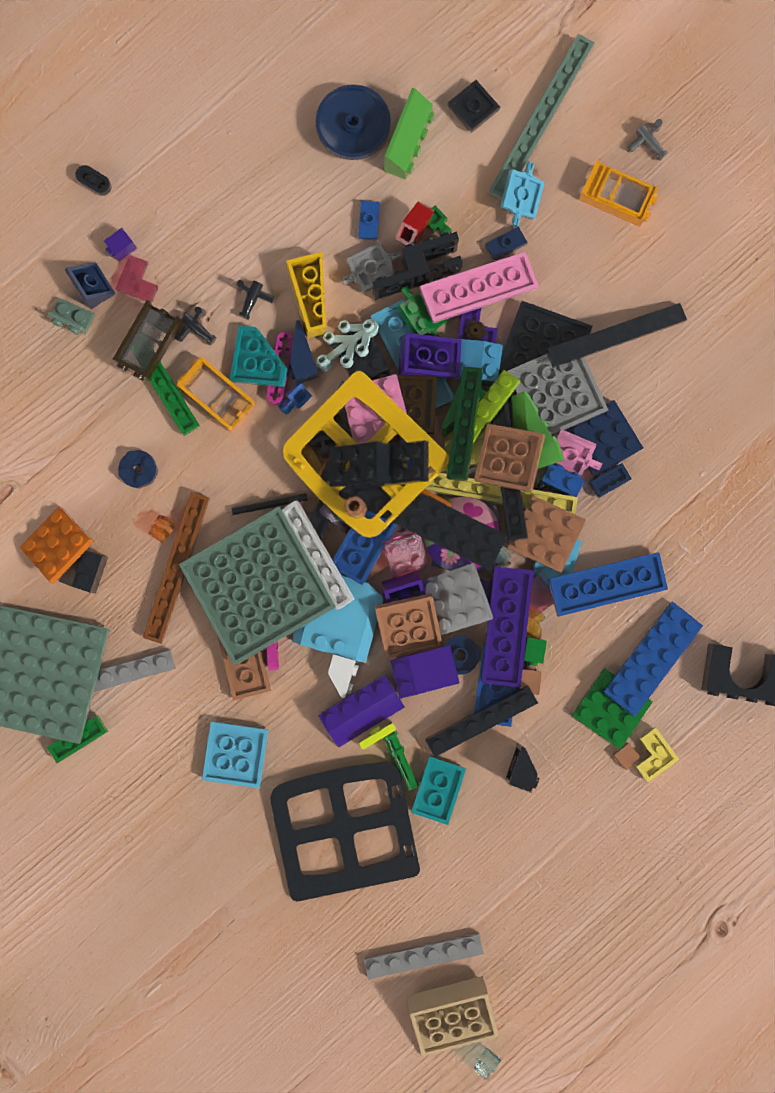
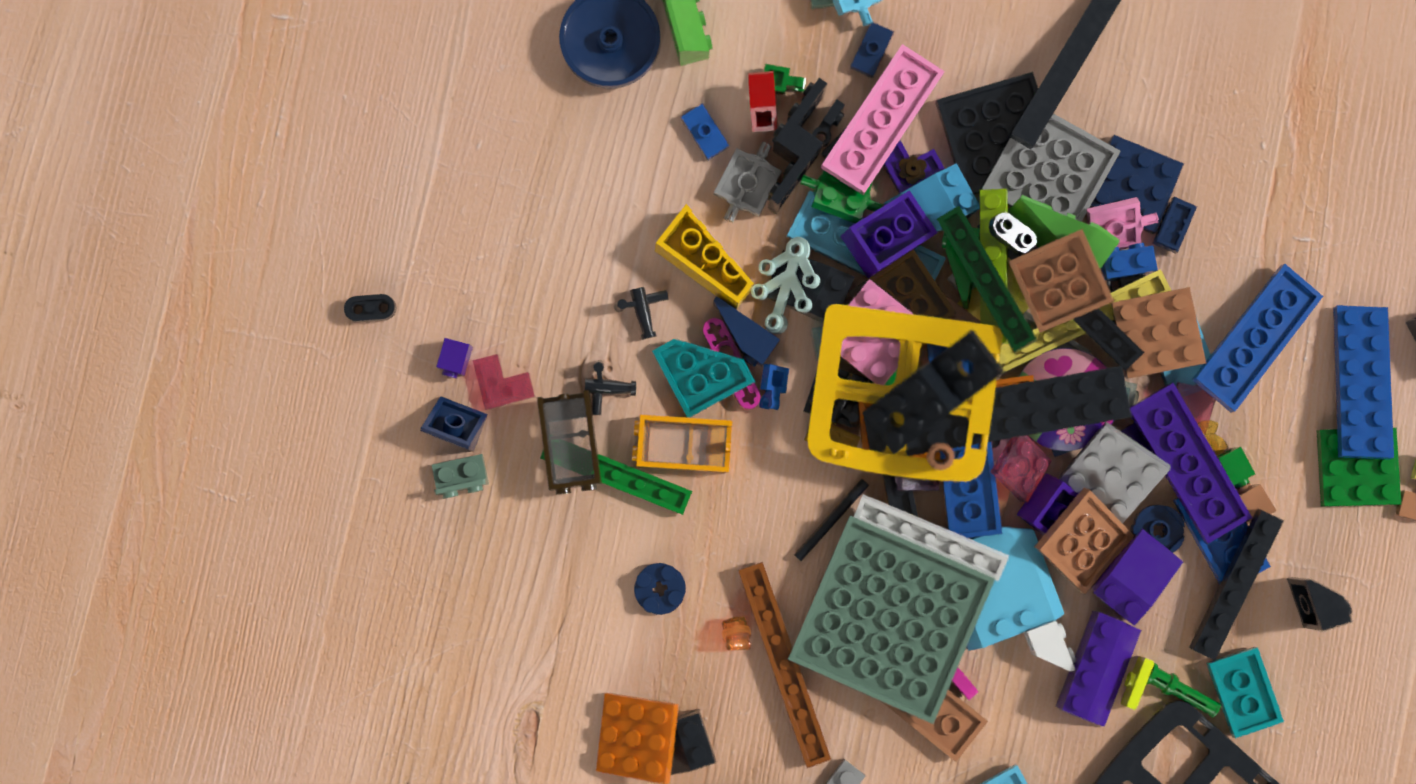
camera: 40 degrees left, 0 degrees up
(501, 409) = (1013, 235): none -> plate

